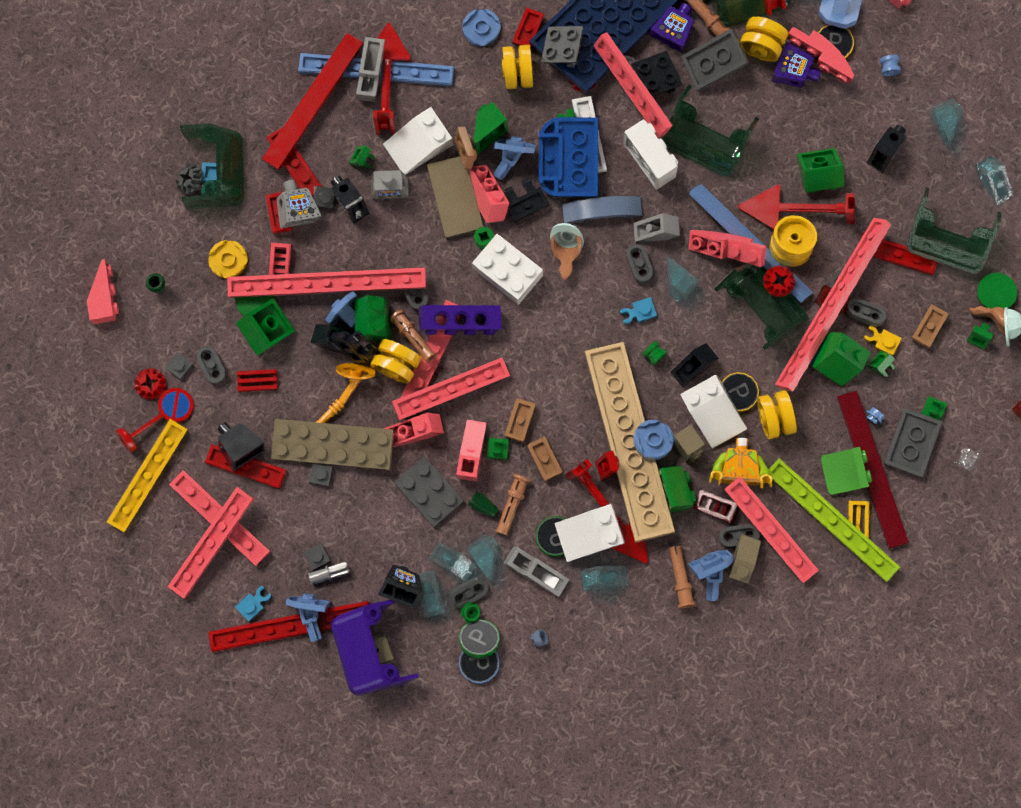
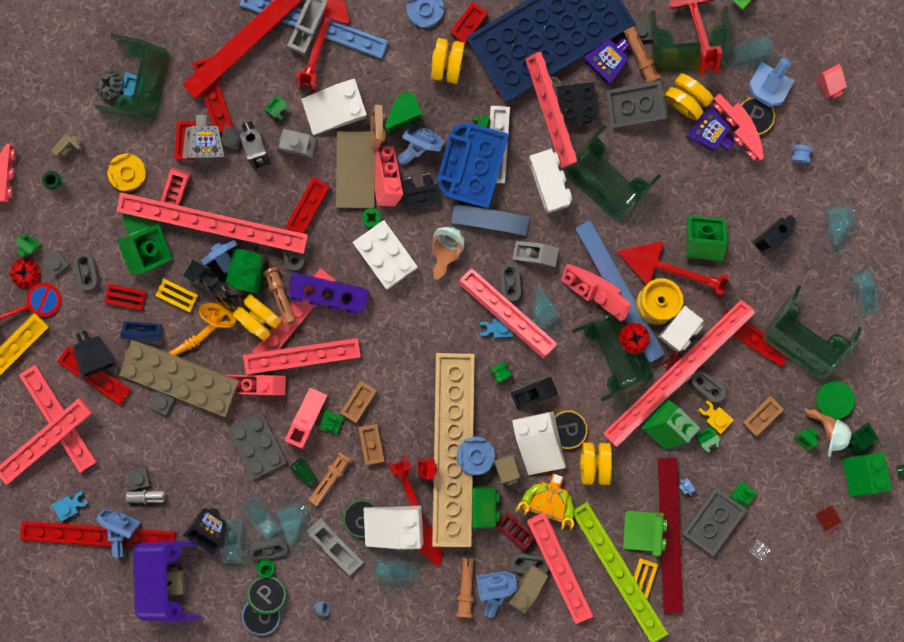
camera: 10 degrees right, 10 degrees up
(145, 354) = (27, 245): none -> green tile
(159, 249) = (63, 146): none -> dark tan bracket
(282, 408) = (141, 331): none -> dark blue tile
(292, 361) = (162, 288): none -> yellow tile
(417, 241) = (307, 206): none -> red plate
(562, 45) = (495, 51): dark grey hinge -> none
(645, 292) = (507, 313): none -> coral plate
(821, 262) = (680, 329): none -> white brick

